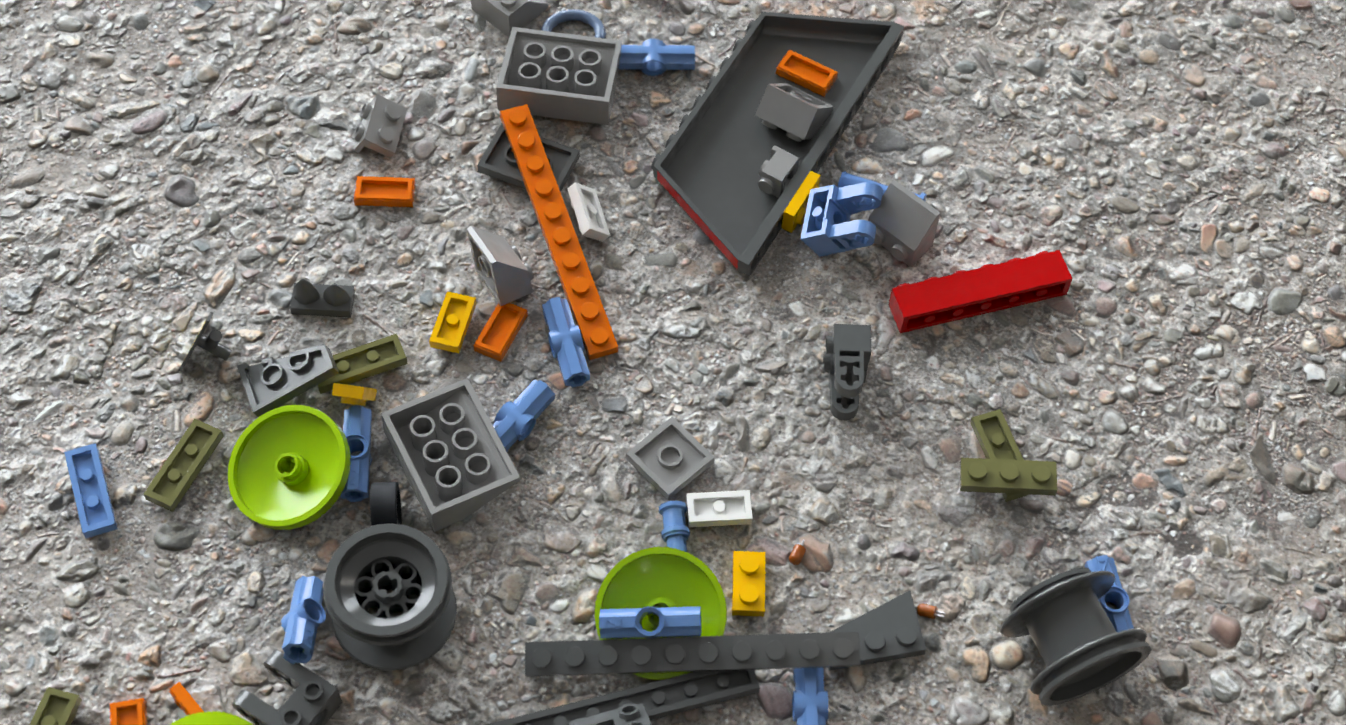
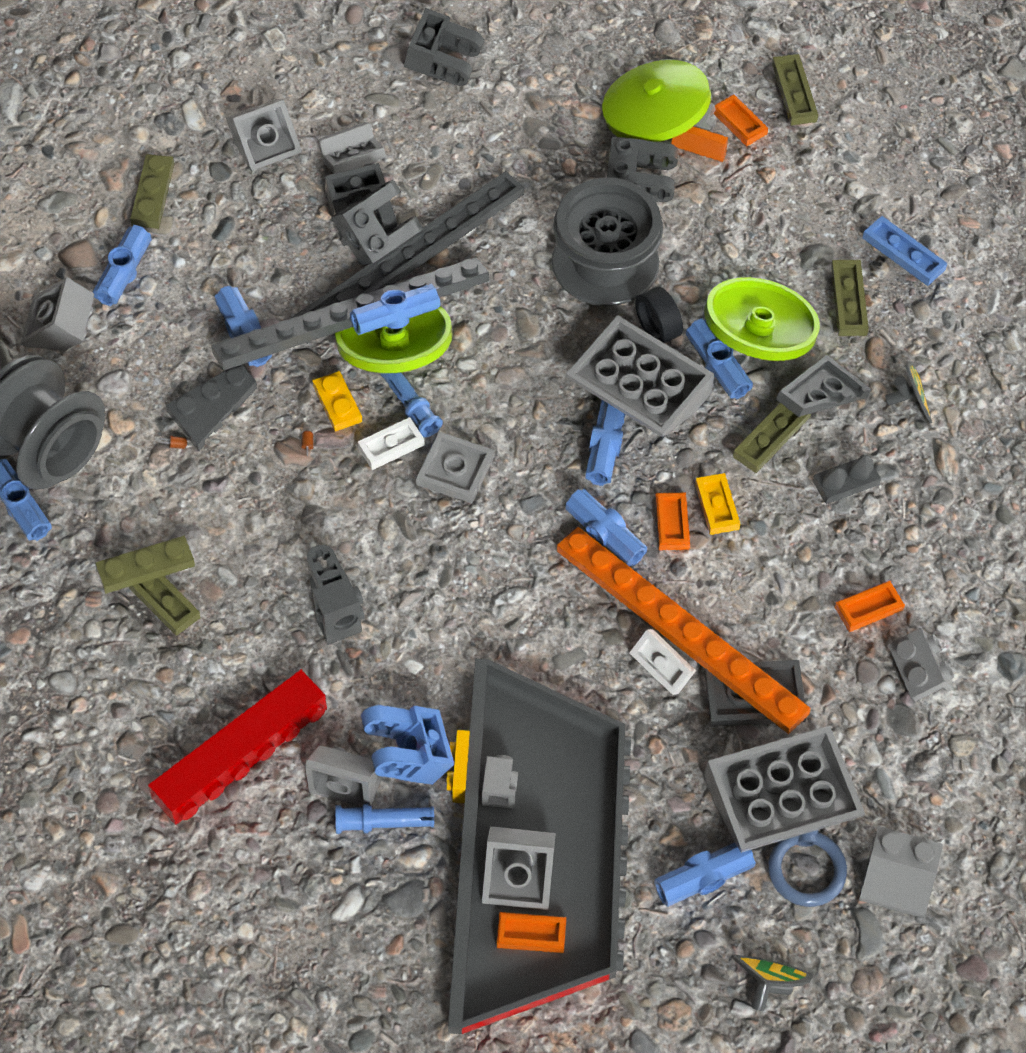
camera: 155 degrees right, 0 degrees up
(303, 620) = (674, 232): medium blue piece -> none
(354, 394) = (752, 393): yellow plate -> none
(499, 266) = (707, 554): light grey slope -> none

